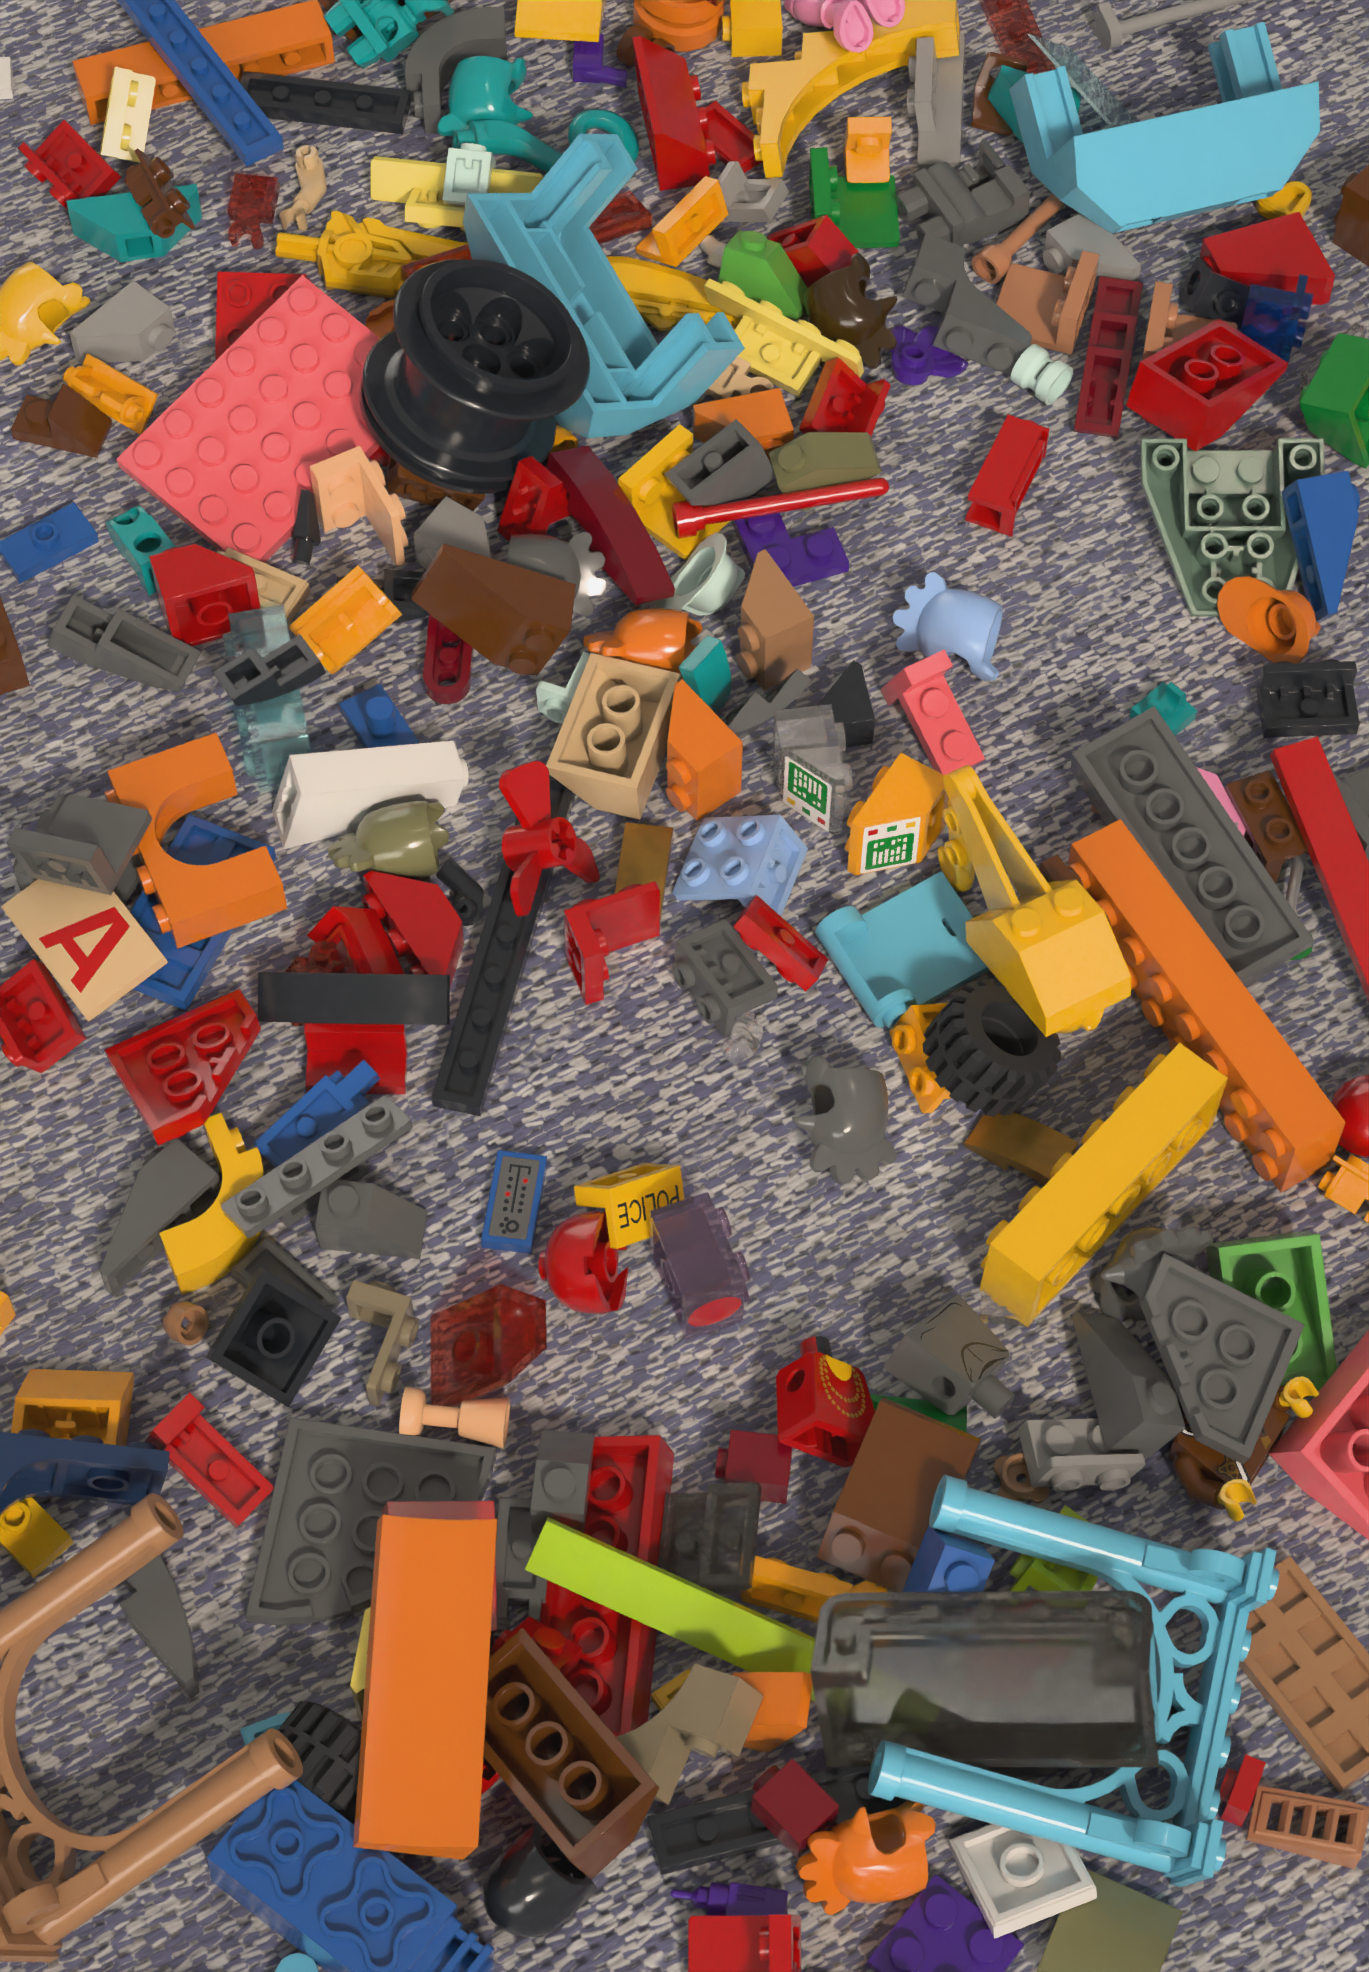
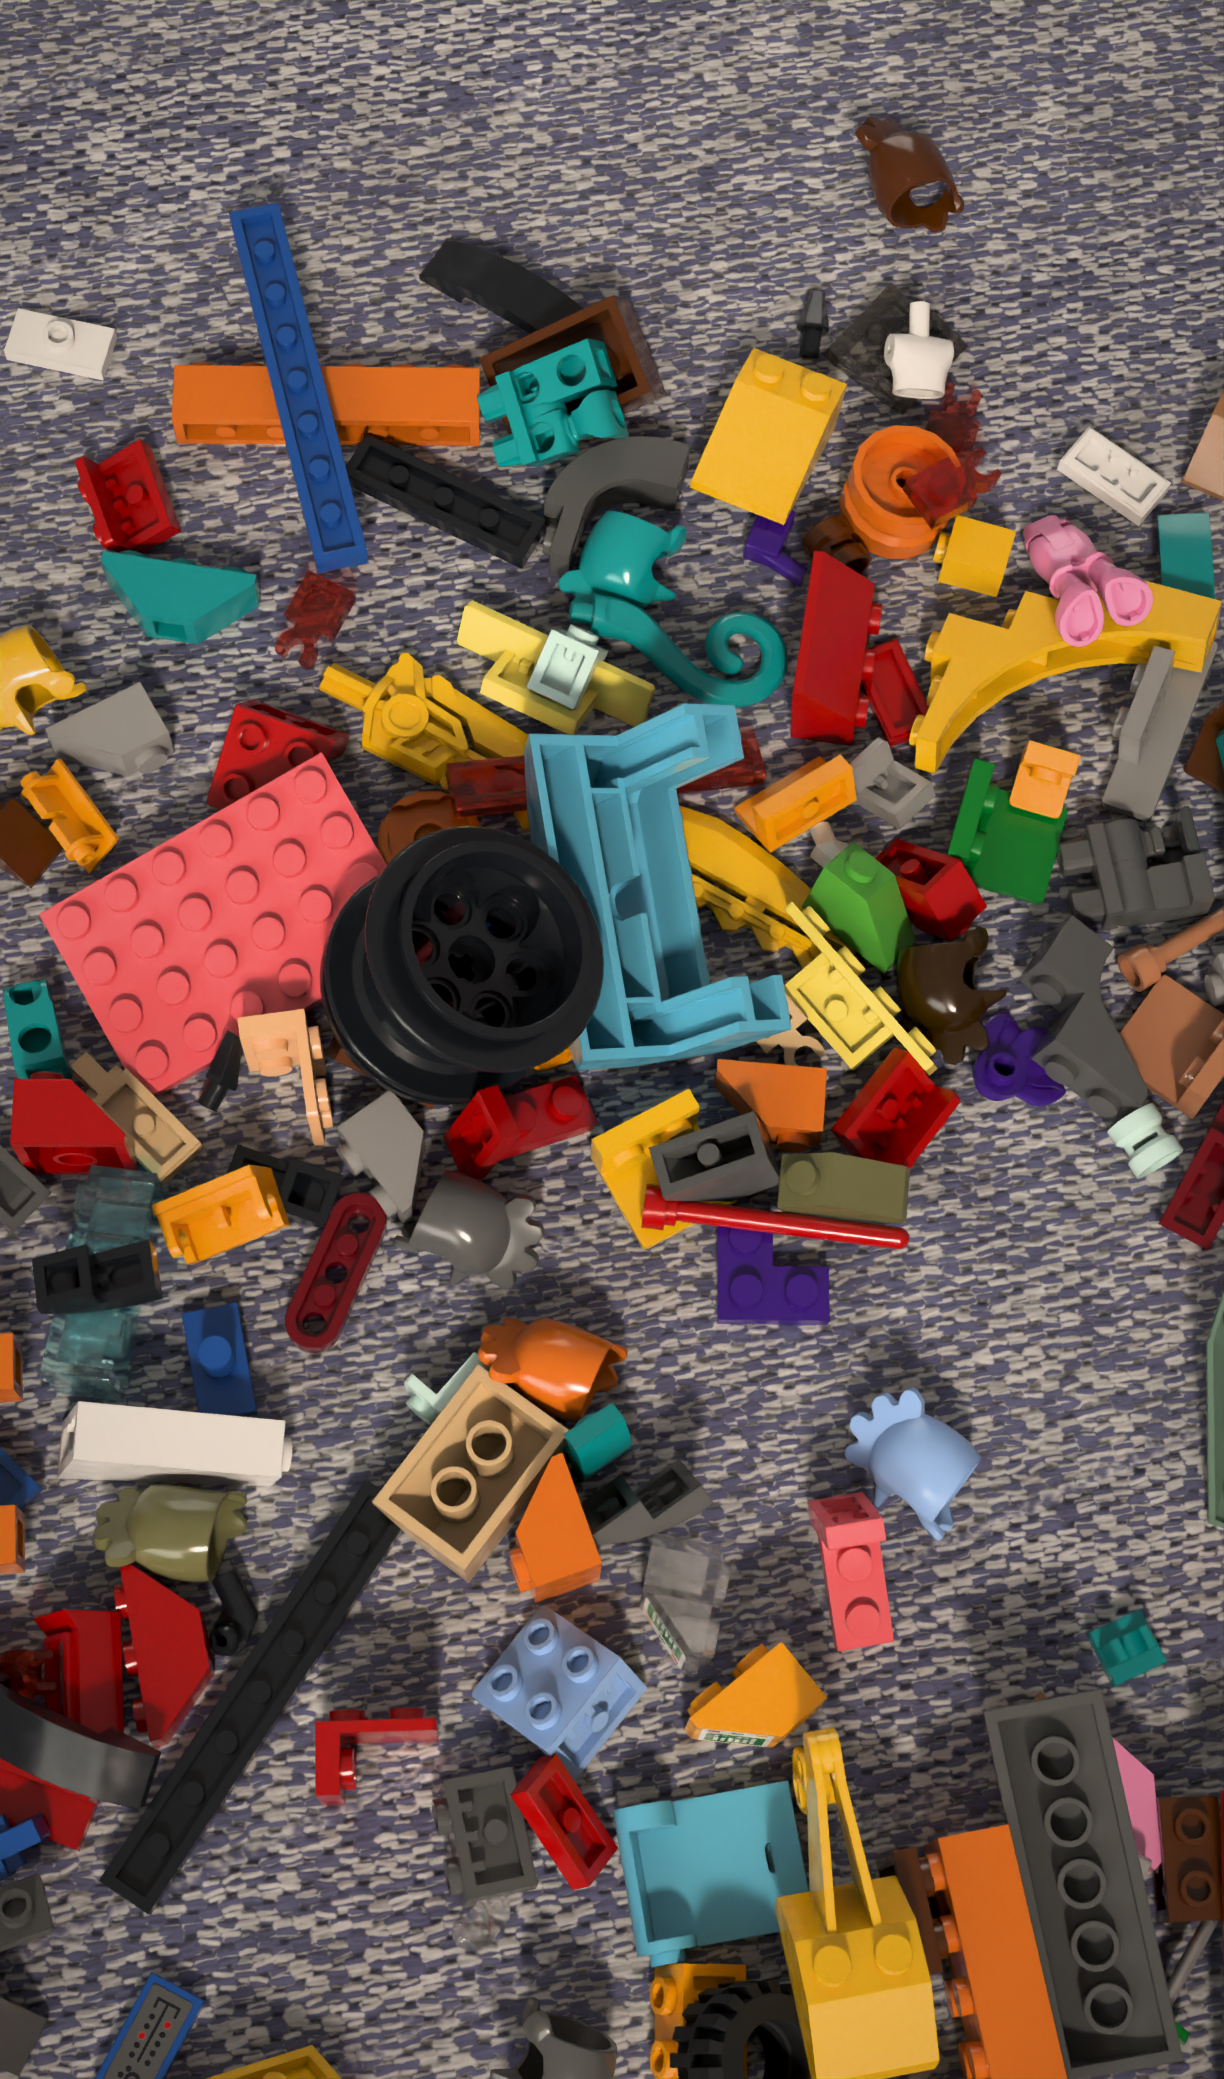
camera: 15 degrees right, 10 degrees up
(127, 114) = (210, 457): light yellow bracket -> none
(152, 181) = (204, 561): reddish brown hinge -> none
(312, 184) = (394, 610): tan arm -> none
(498, 607) = (396, 1276): reddish brown slope -> none
(538, 839) = (326, 1601): red piece -> none
(613, 524) = (567, 1191): dark red slope -> none
(645, 856) = (446, 1655): pearl gold slope -> none
(705, 579) = (644, 1293): light aqua piece -> none
(774, 626) = (702, 1391): medium nougat slope -> none
(852, 706) = (752, 1526): black slope -> none
(1007, 474) = (1056, 1264): red window -> none

